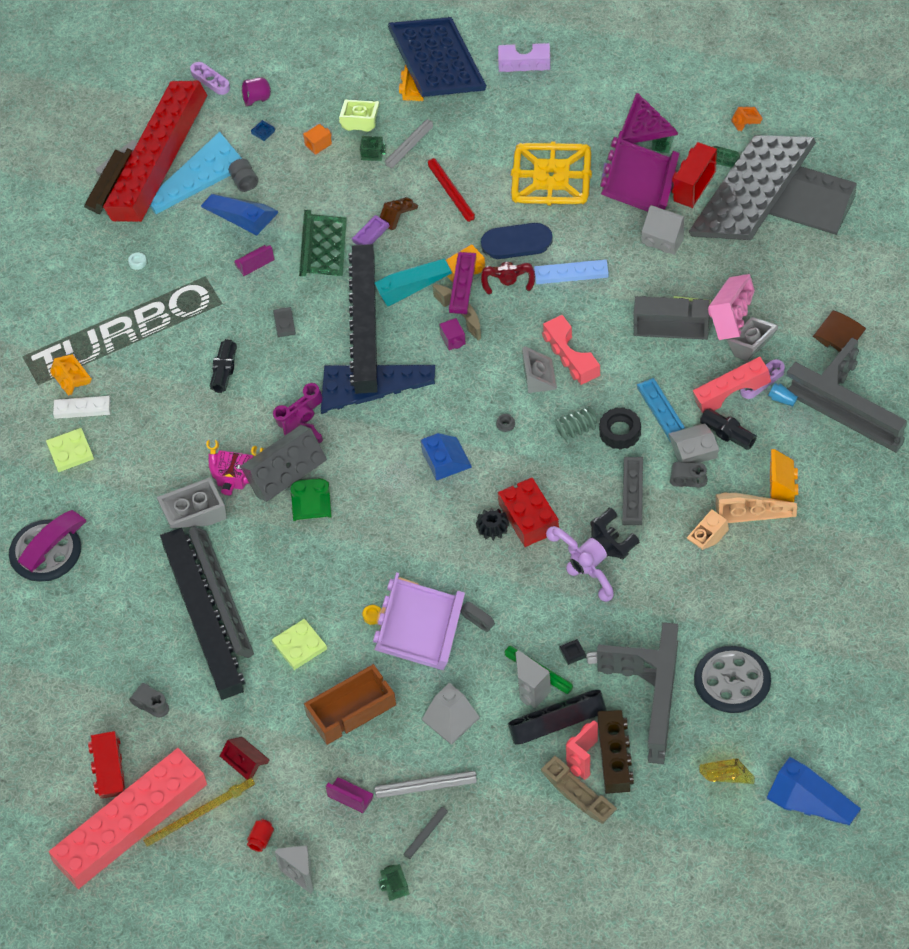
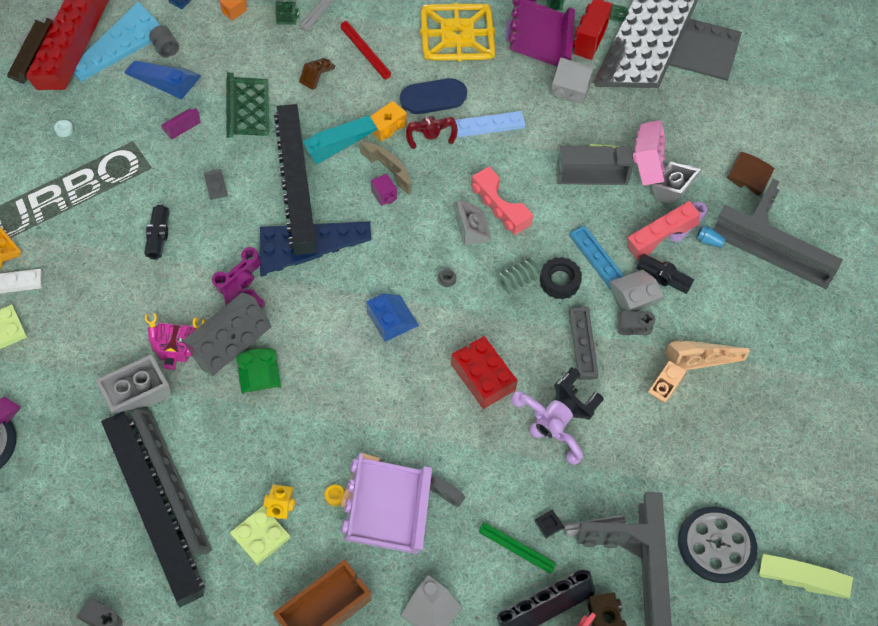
camera: 15 degrees left, 5 degrees up
(319, 615) = (279, 501): none -> yellow brick
(371, 231) = (293, 91): medium lavender plate -> none
(462, 283) = (389, 139): magenta tile -> none
(492, 524) = (453, 388): black gear -> none
(532, 680) = (513, 563): light grey slope -> none
(782, 477) = (727, 322): light orange slope -> none
(809, 709) = (806, 575): none -> yellowish green slope

